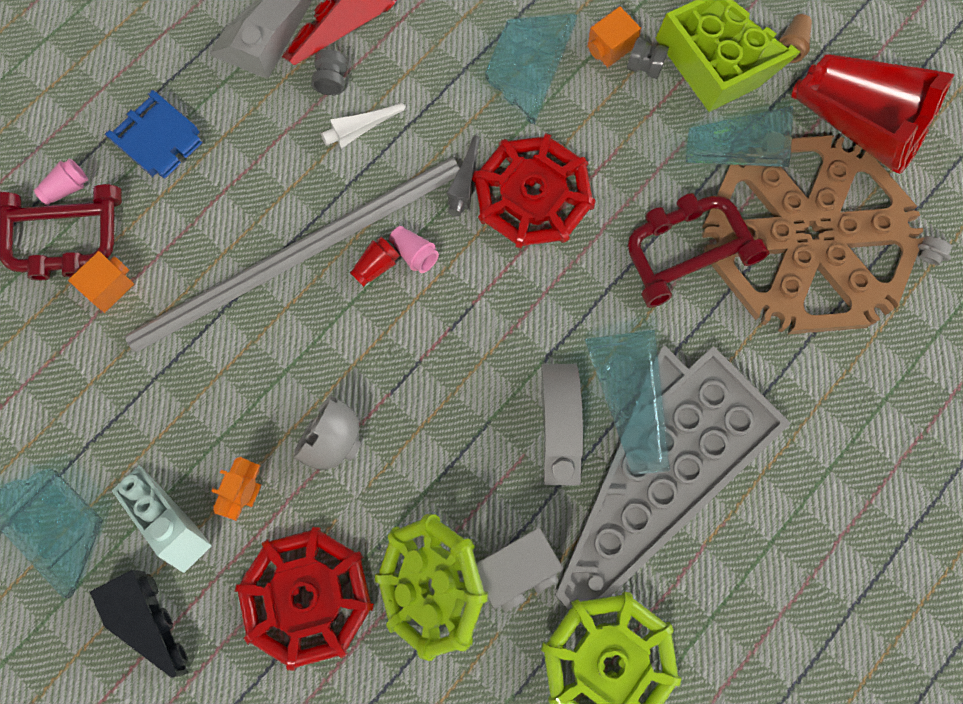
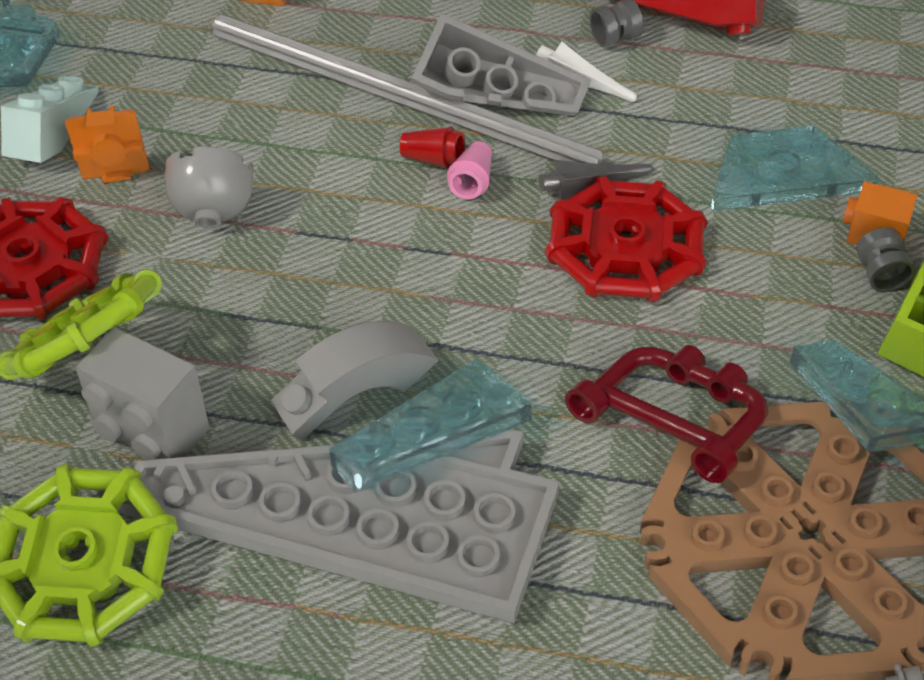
camera: 60 degrees right, 25 degrees down
(327, 189) = (486, 70): none -> light grey wedge

